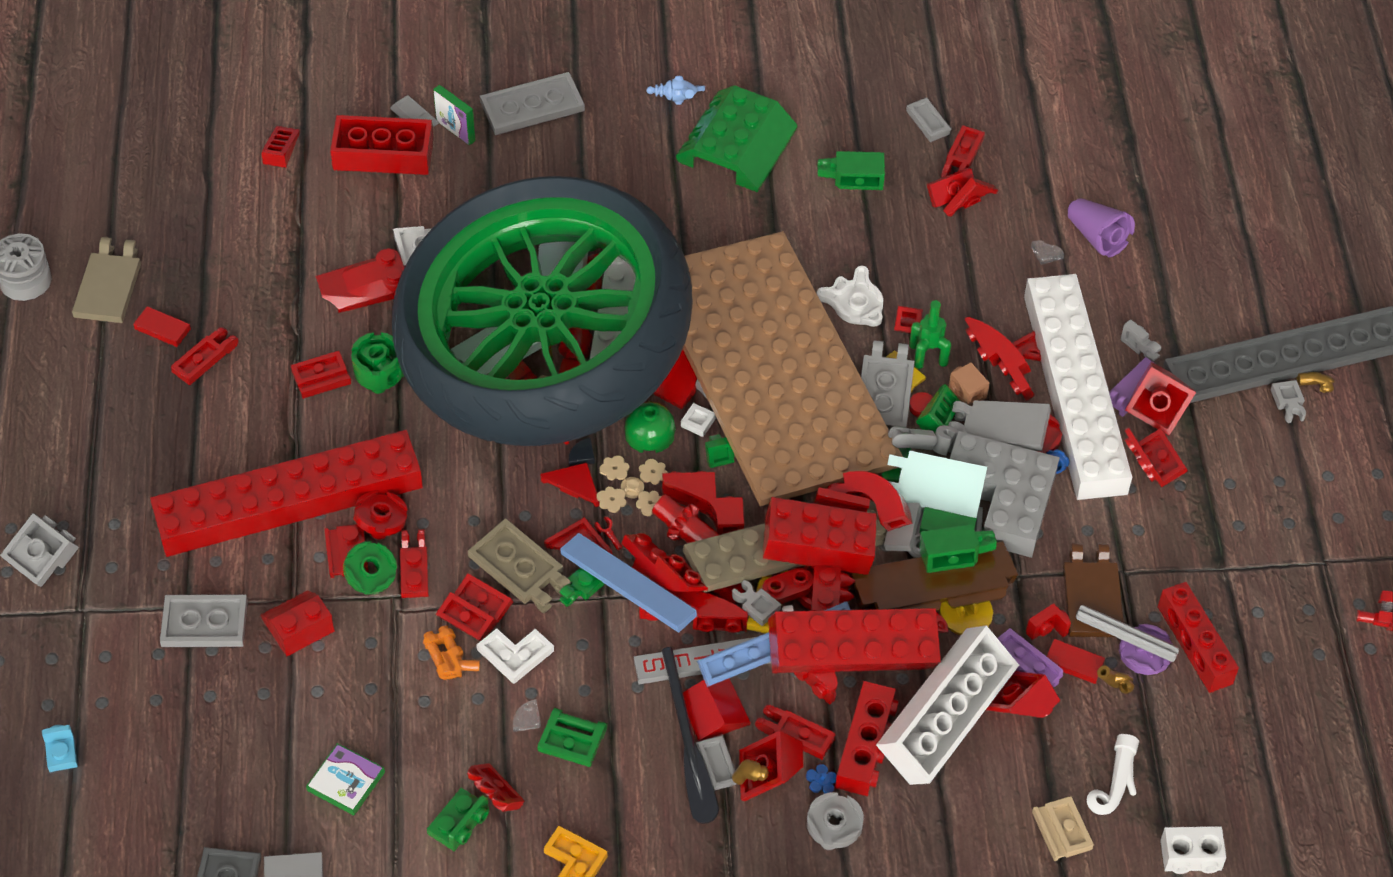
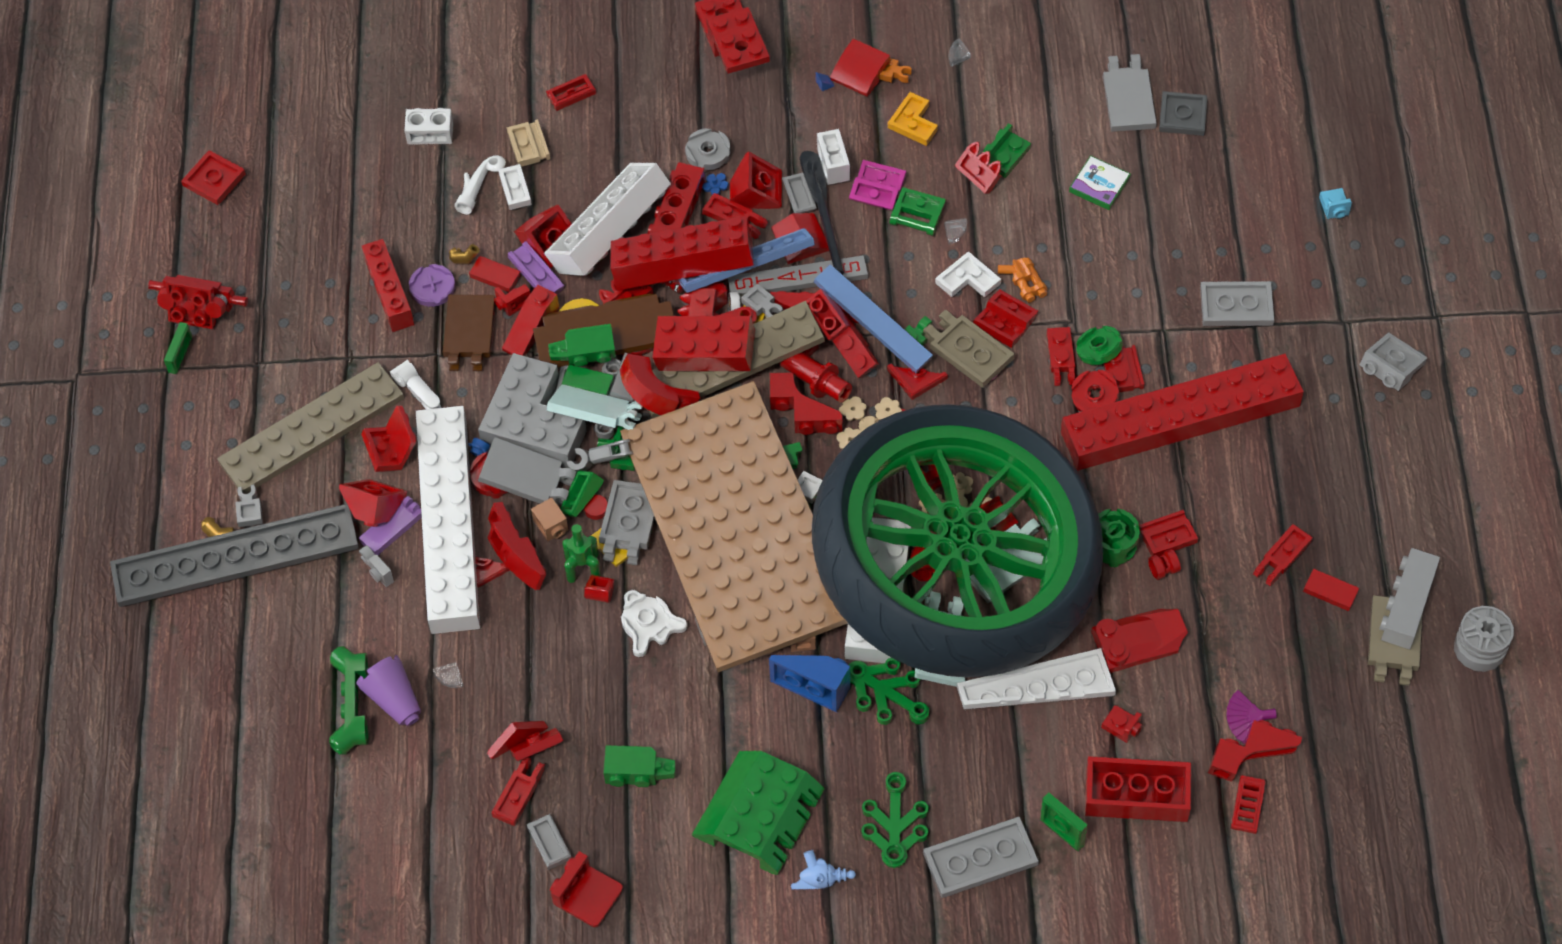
camera: 175 degrees left, 5 degrees up
(84, 302) = (1409, 599): none -> light grey brick
(262, 185) = (1261, 742): none -> red arch
(271, 217) = (1242, 714): none -> magenta hand
(299, 622) = (1157, 302): red slope -> none
(329, 342) = (1164, 564): none -> red wheel
(387, 208) = (1122, 724): none -> red bracket
(410, 109) = (1109, 850): light grey tile -> none
(609, 532) = (893, 385): red hand -> none
(610, 108) = (894, 825): none -> green plant
(620, 775) = (878, 185): none -> dark pink slope
(676, 796) = (833, 156): none -> white brick
(694, 226) = (812, 677): none -> blue slope
(751, 770) = (774, 169): pearl gold arm -> none
(841, 500) = (683, 379): red tile -> none
(888, 77) = (585, 891): none -> red bracket
(1020, 599) = (535, 307): none -> red slope
(1069, 768) = (514, 187): none -> white plate
(1127, 633) = (447, 286): light grey axle -> none
(1139, 248) = (355, 728): none -> green plate
(1149, 538) = (407, 375): none -> white piece
(1243, 487) = (310, 428): none -> dark tan plate

